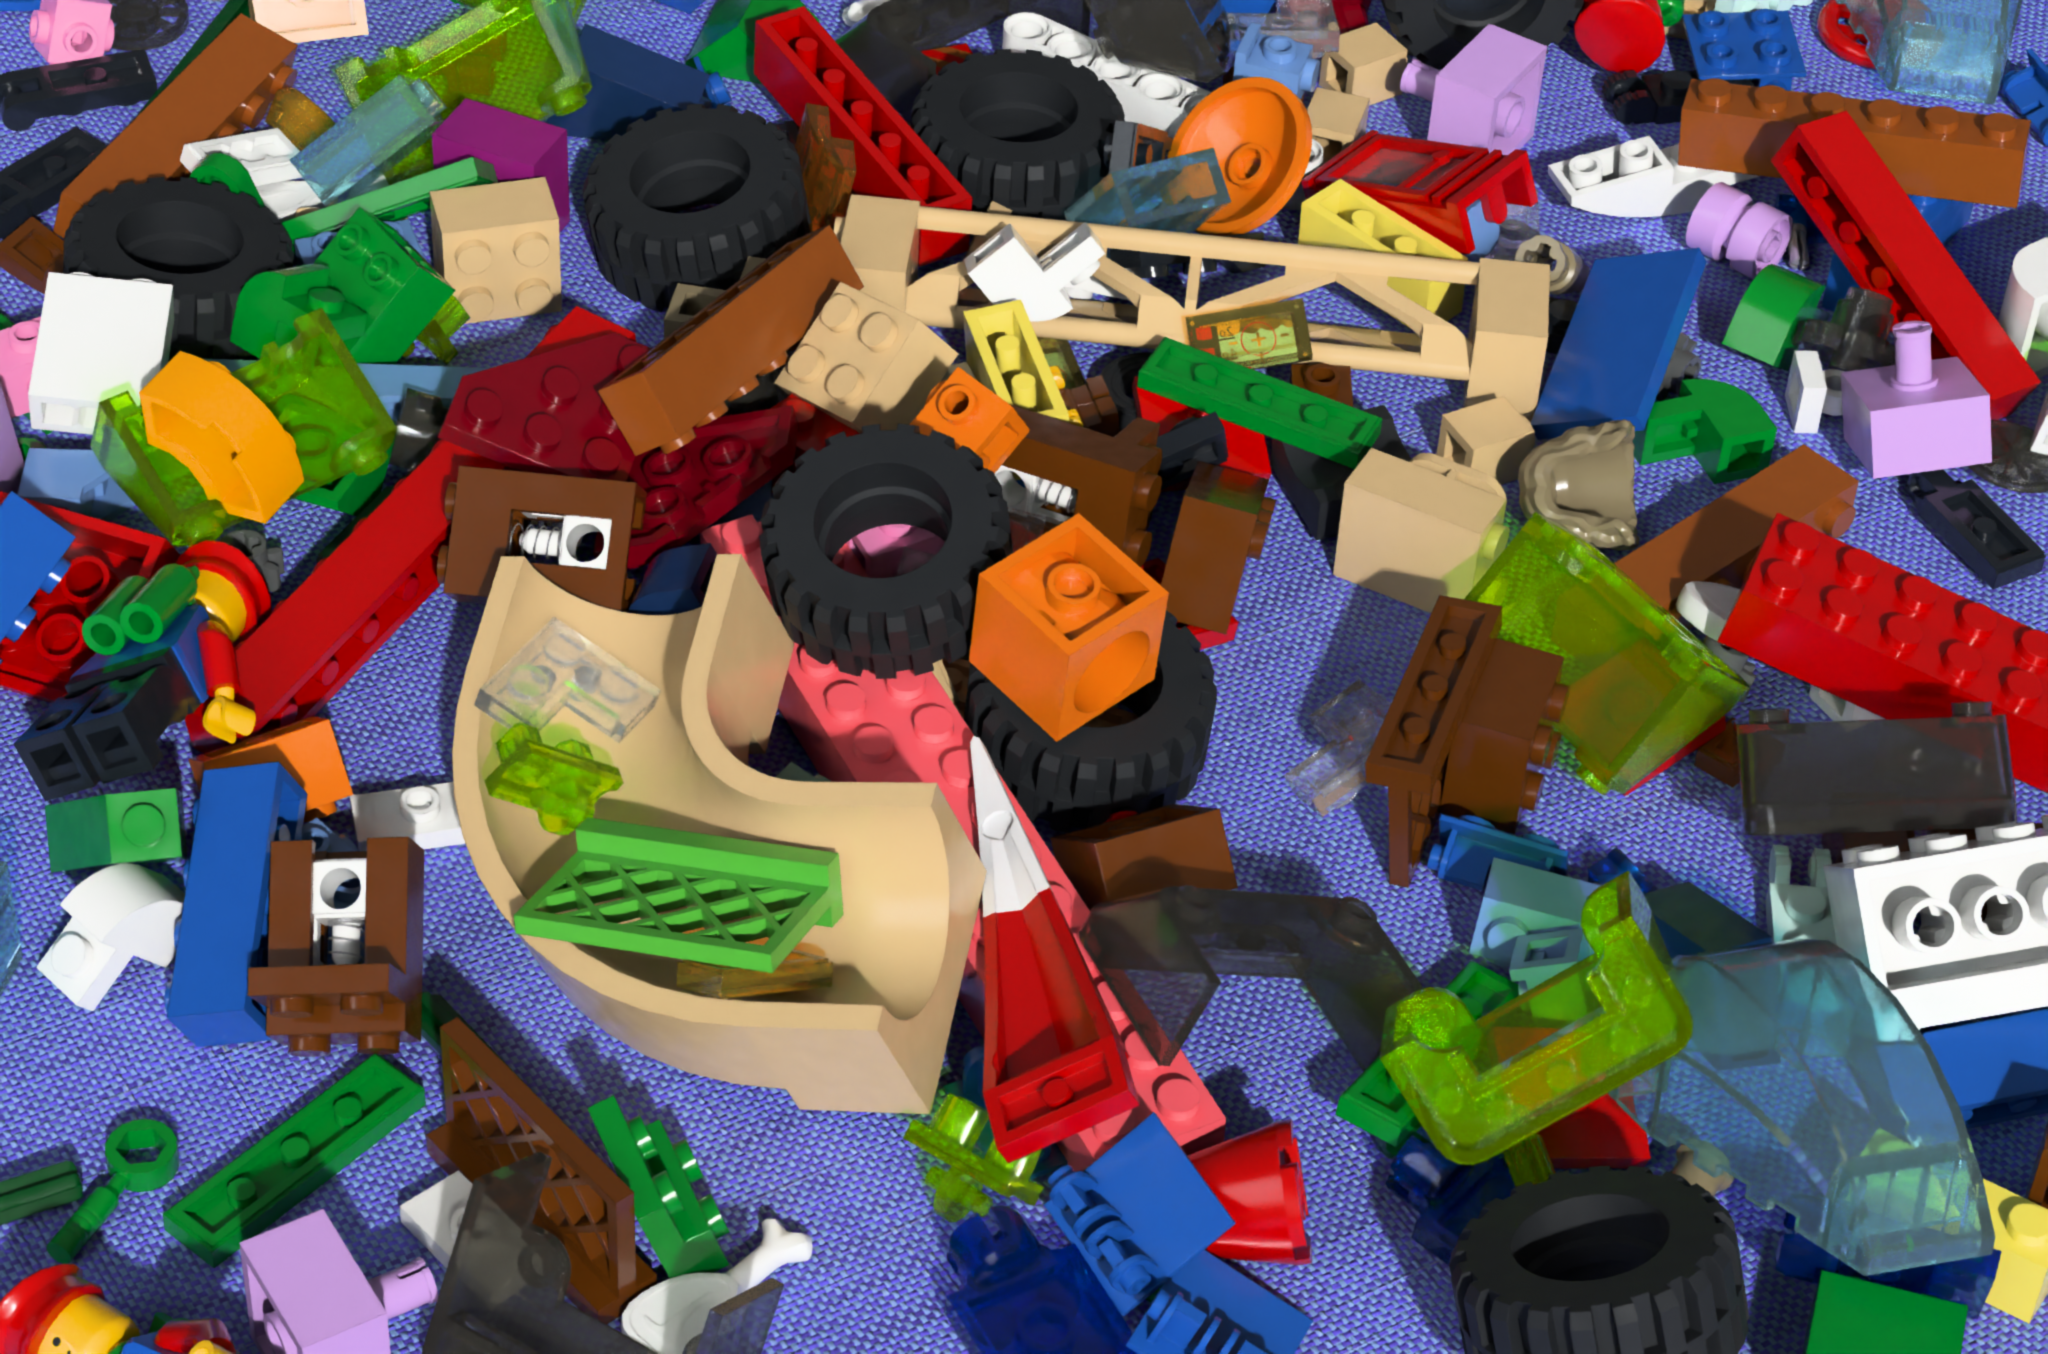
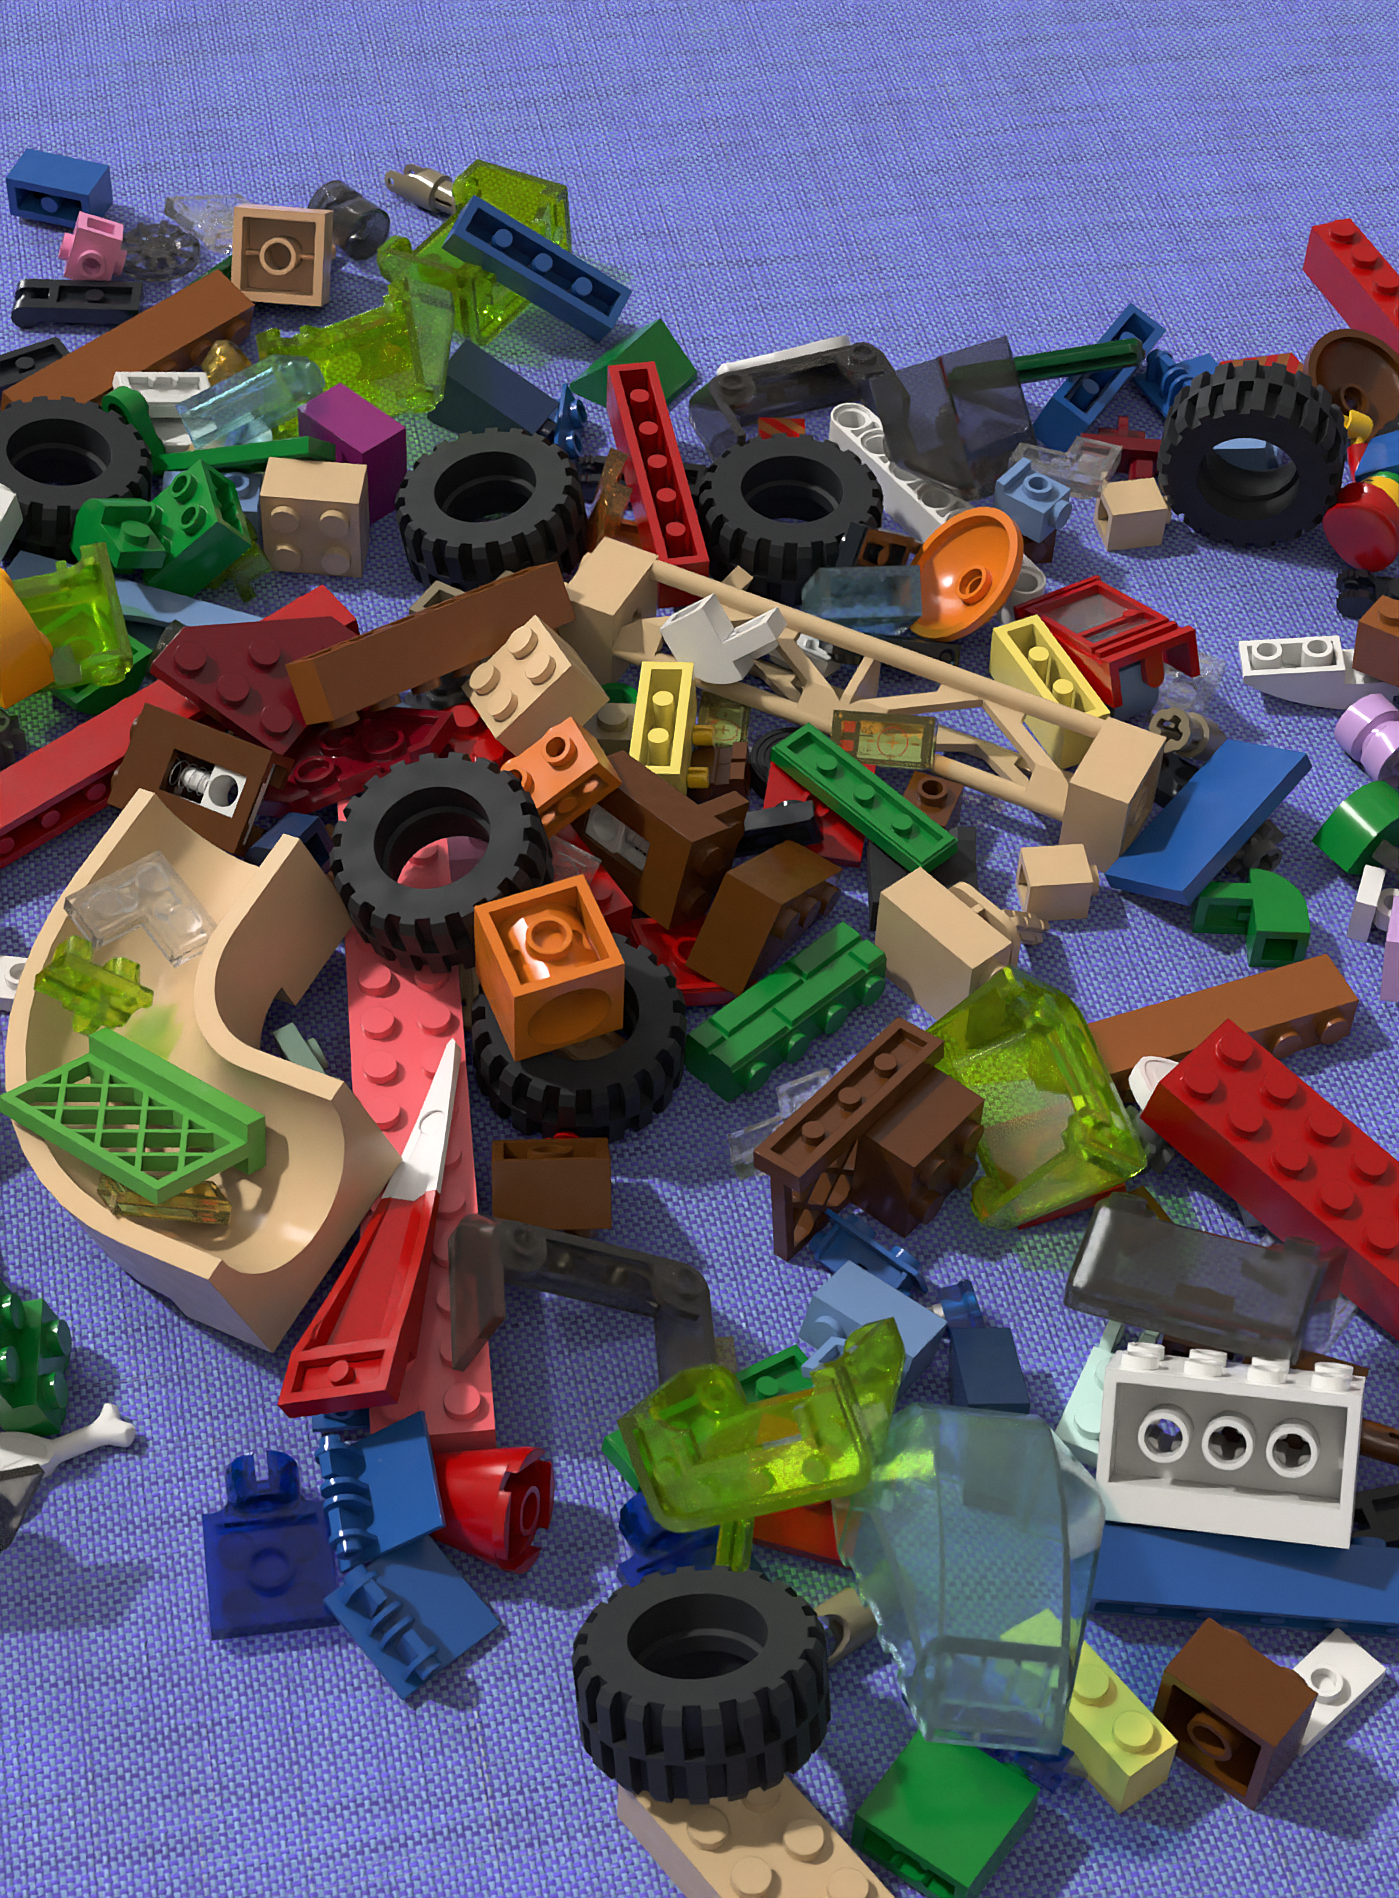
camera: 20 degrees right, 5 degrees up
(952, 1140) = (266, 1422): clear neon green hips -> none
(1282, 636) = (786, 1012): none -> green brick
(1337, 120) = (1073, 558): tan brick -> none
(1484, 92) = (1208, 569): lavender brick -> none
(1585, 483) = (1111, 945): dark tan hair -> none

